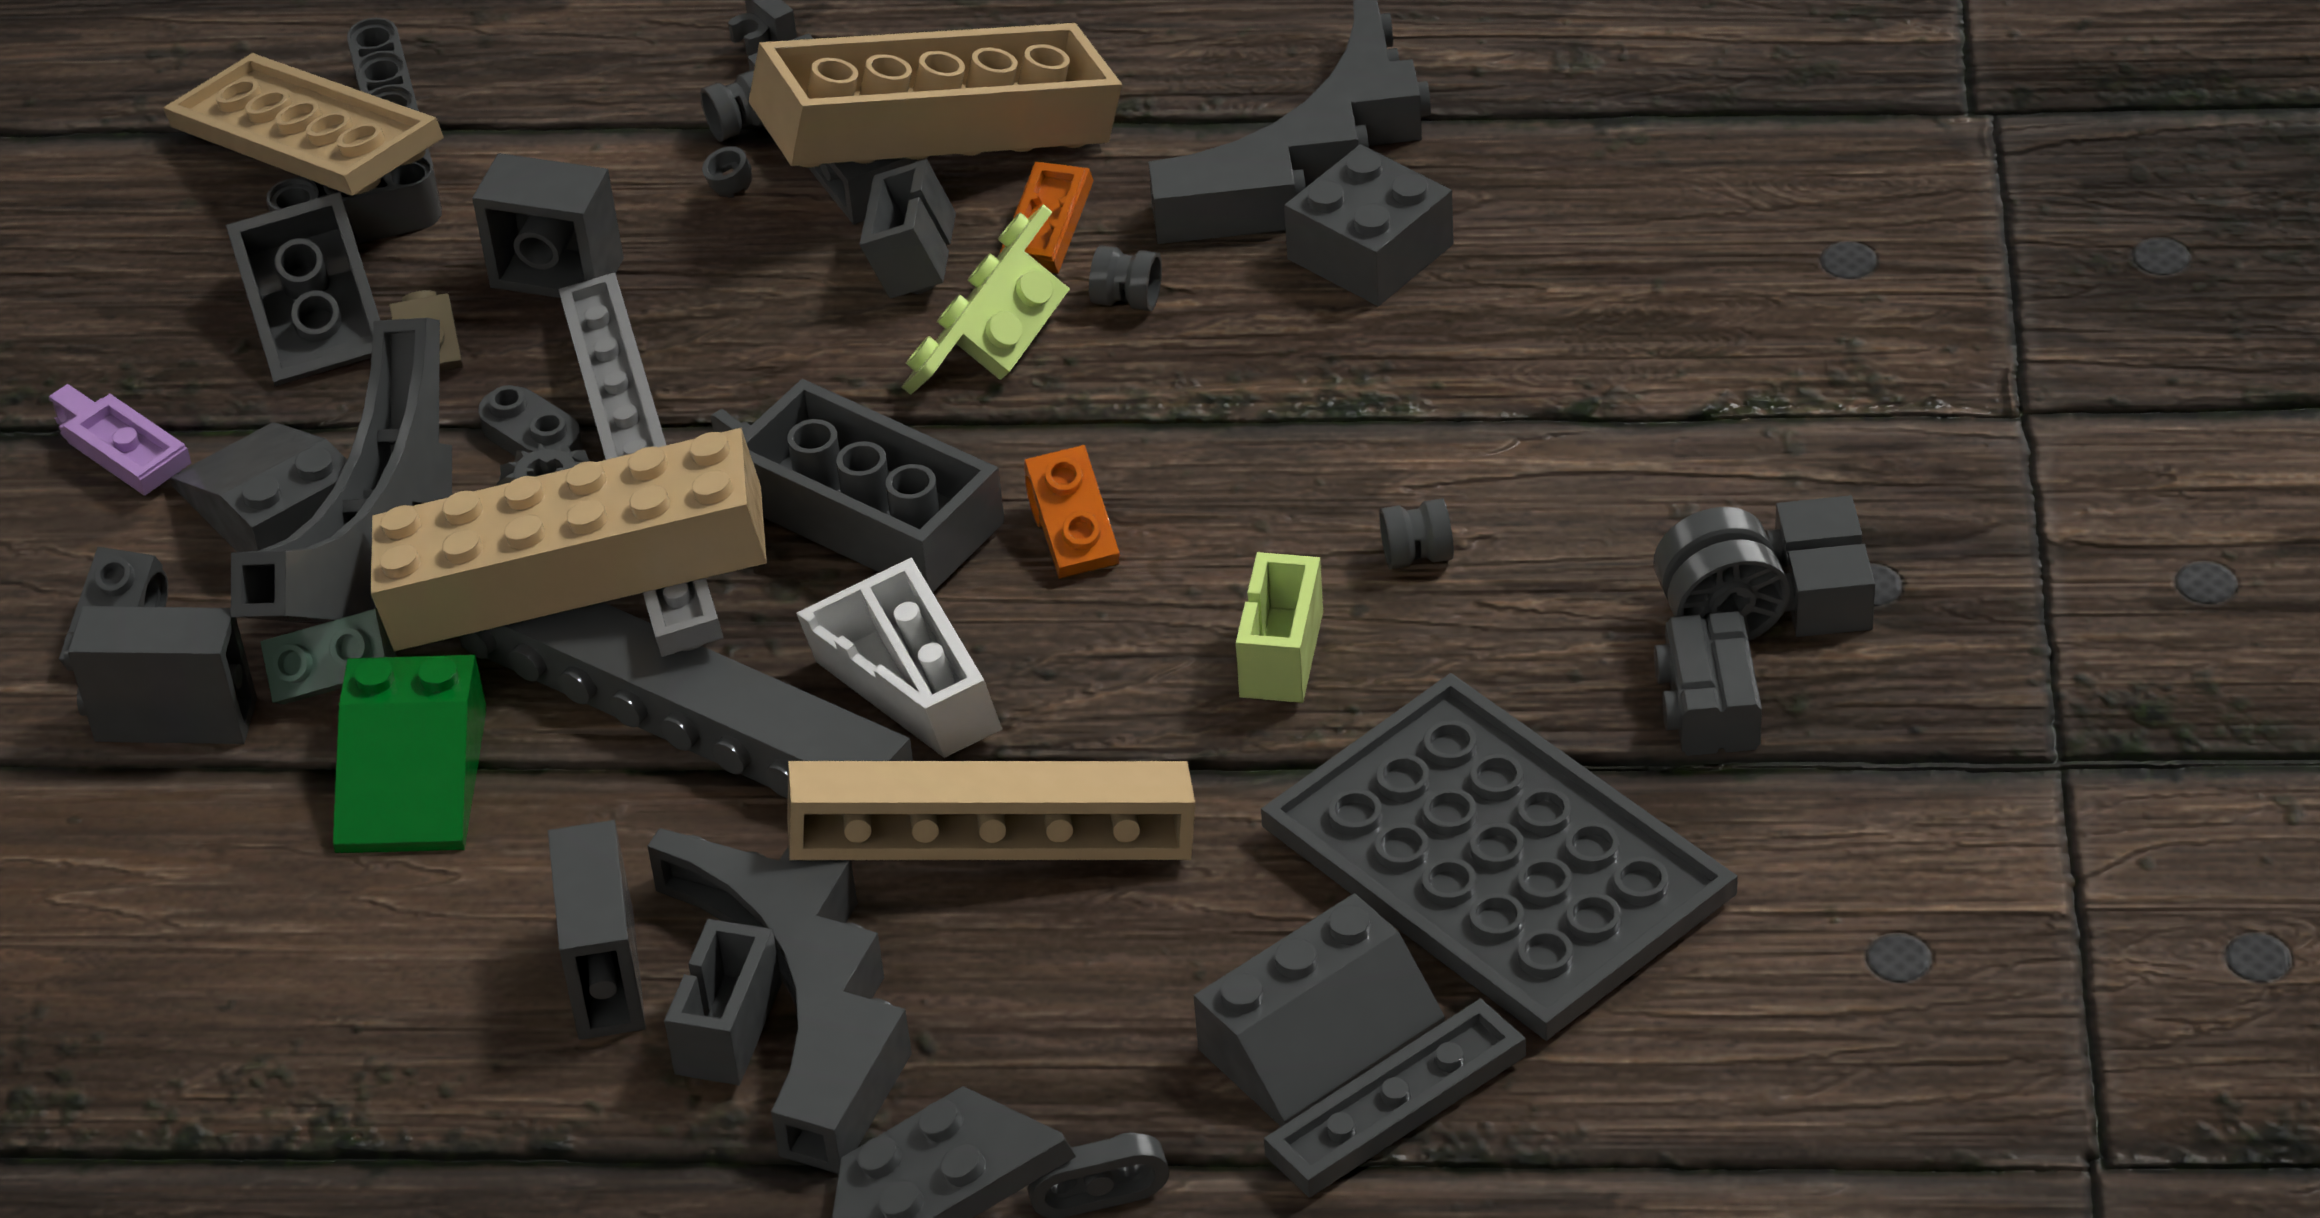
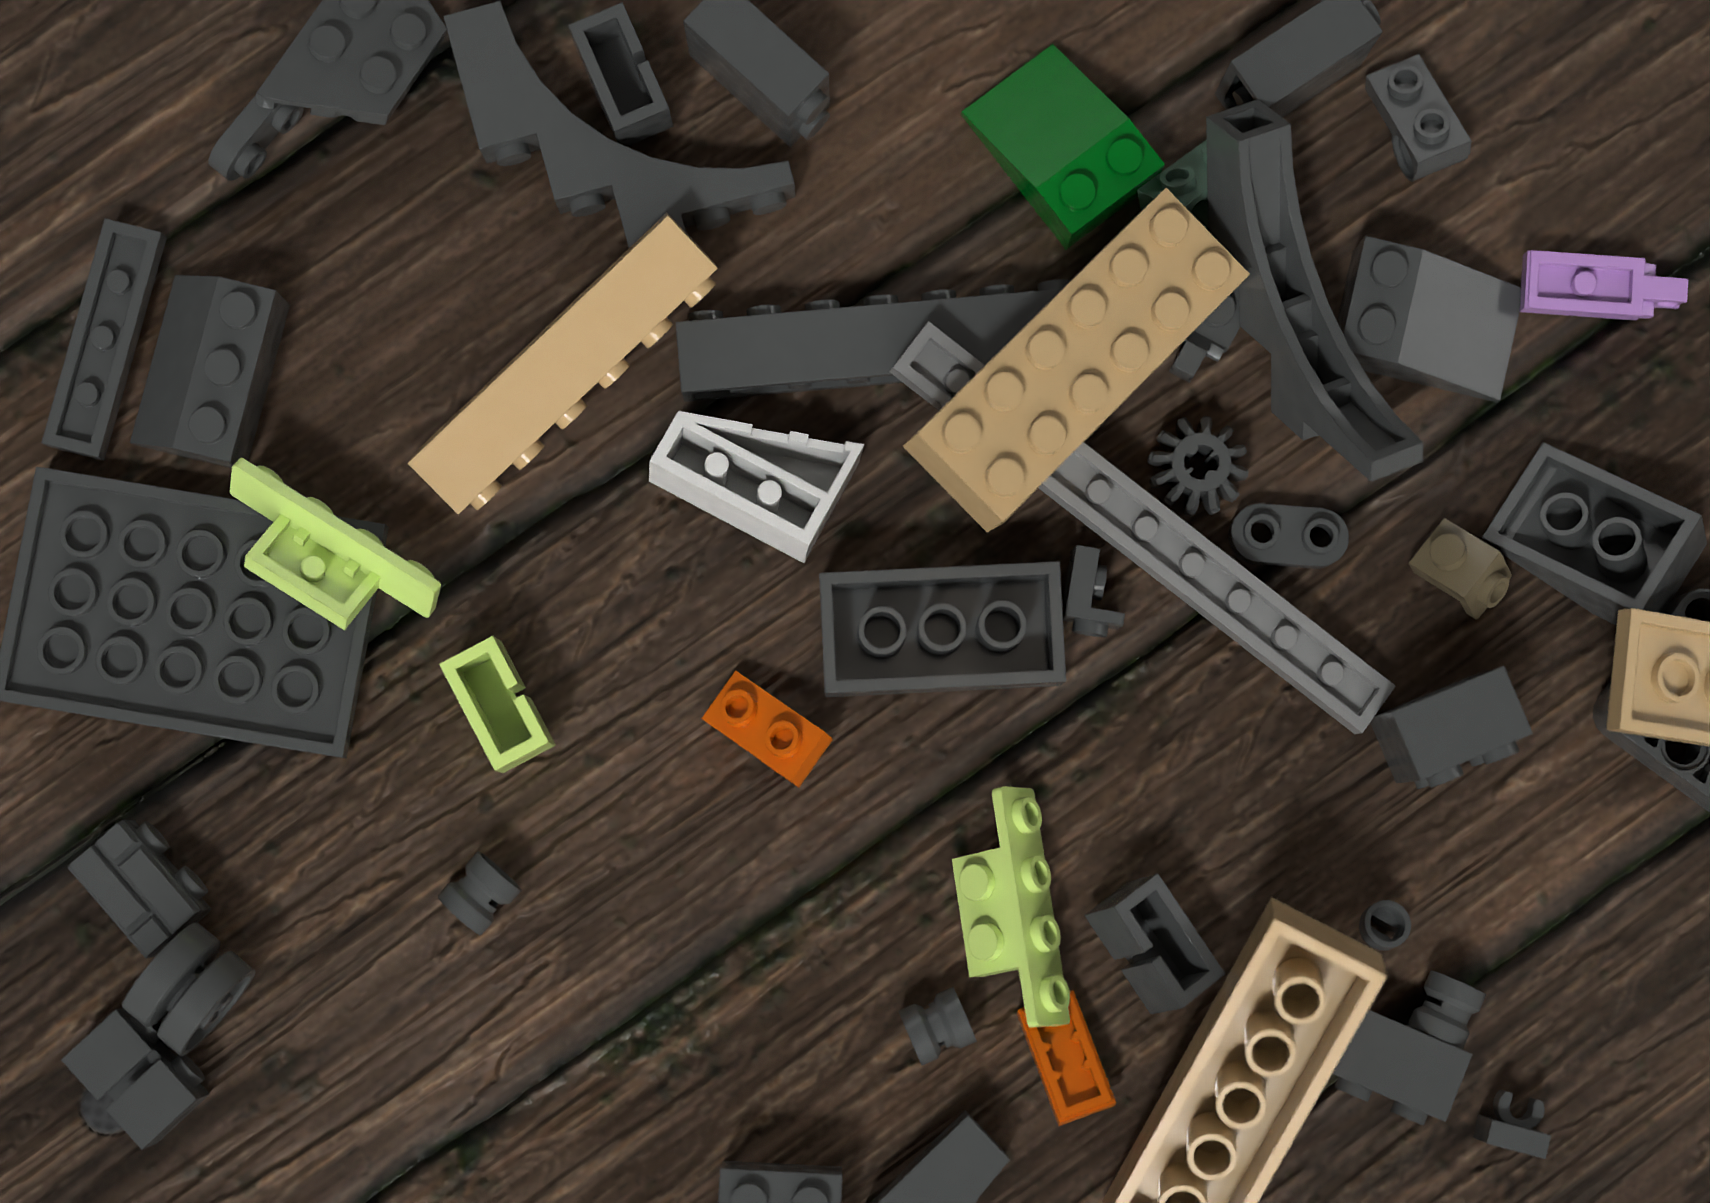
camera: 135 degrees right, 40 degrees up
(1341, 786) = (321, 556): none -> yellowish green bracket

